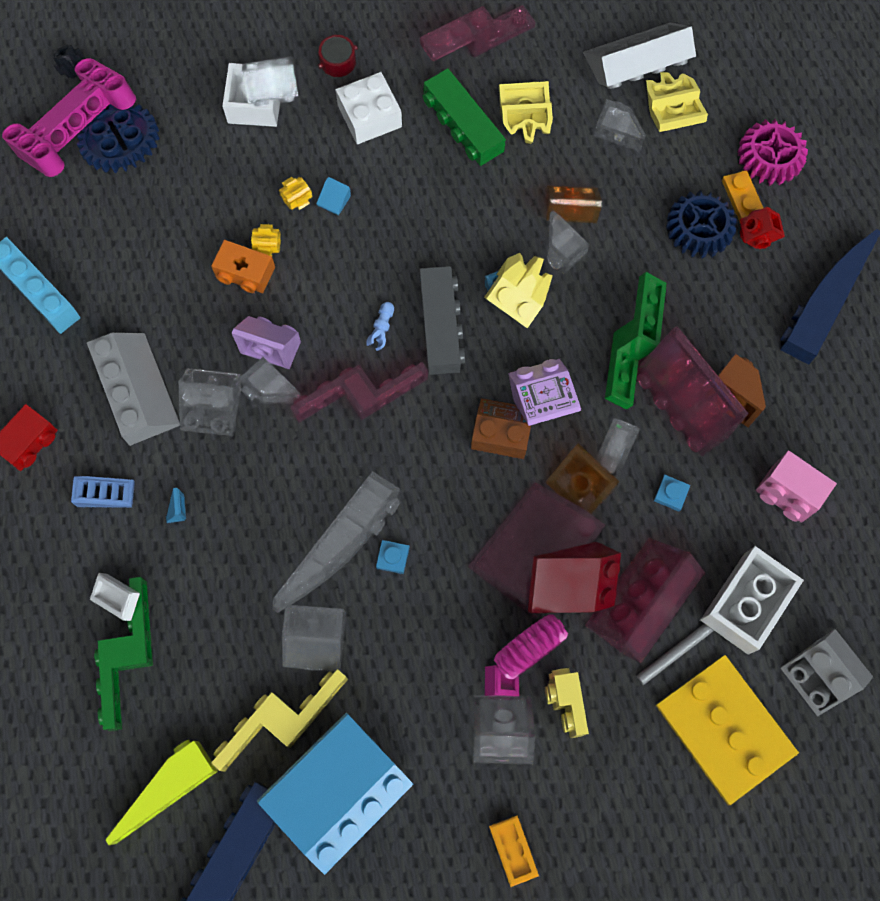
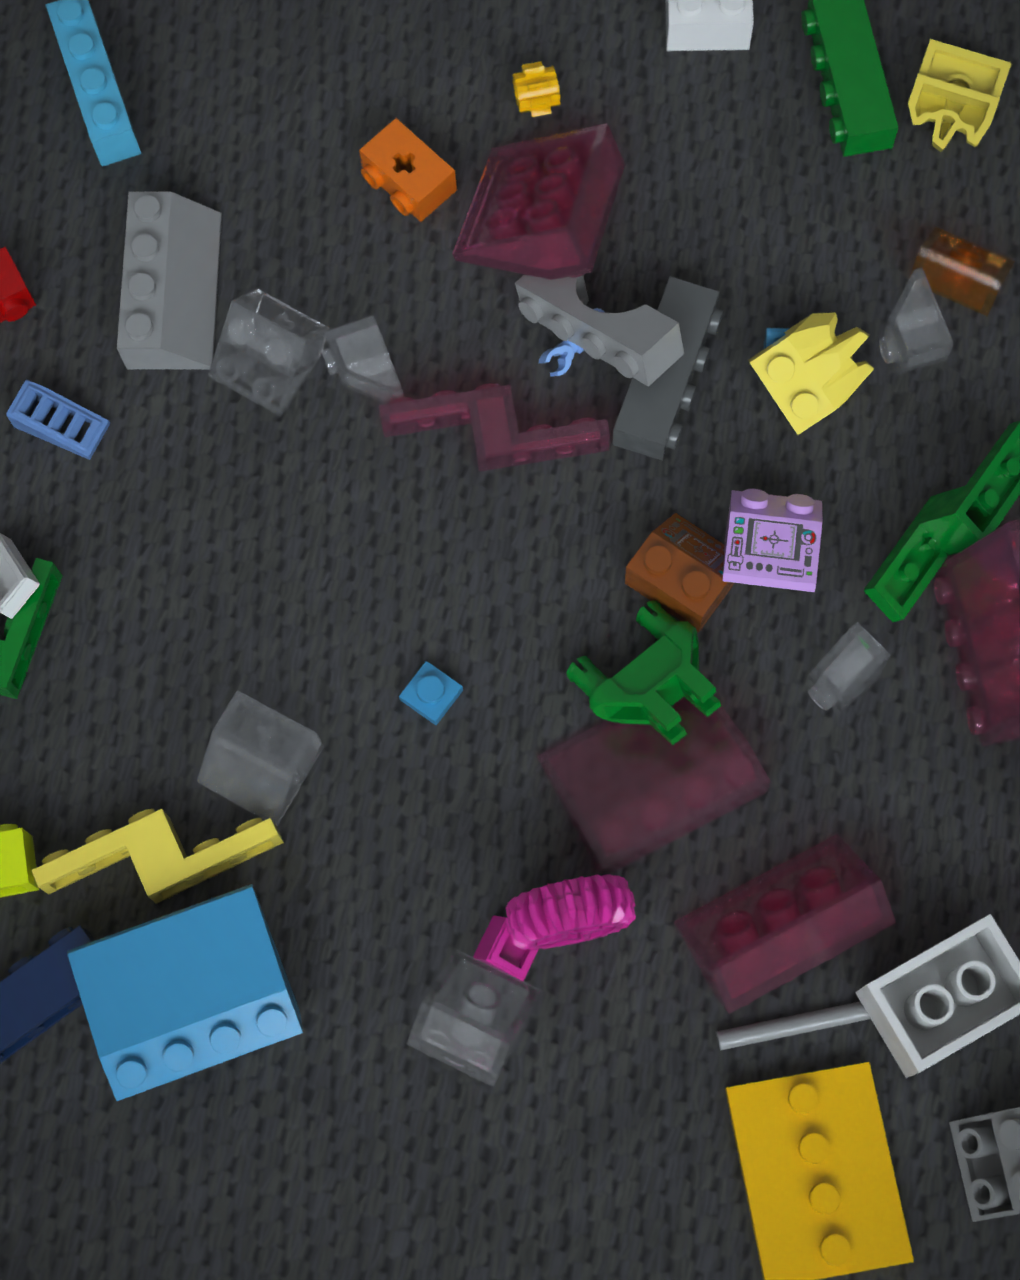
camera: 30 degrees right, 0 degrees up
(176, 509) = (152, 485): dark azure slope -> none
(263, 339) = (388, 290): lavender slope -> none
(266, 239) = (459, 143): yellow gear -> none
(331, 256) = (543, 204): none -> clear pink slope
(334, 196) = (593, 109): dark azure slope -> none
(342, 540) = (363, 632): clear slope -> none
(420, 312) = (634, 342): none -> light grey arch
(513, 851) = (407, 1200): light orange plate -> none
(514, 497) = (653, 680): none -> green connector
(566, 694) = (587, 1009): light yellow plate -> none
(574, 579) = (680, 840): dark red slope -> none
(583, 480) = (771, 702): clear orange slope -> none
(672, 493) = (905, 781): dark azure plate -> none

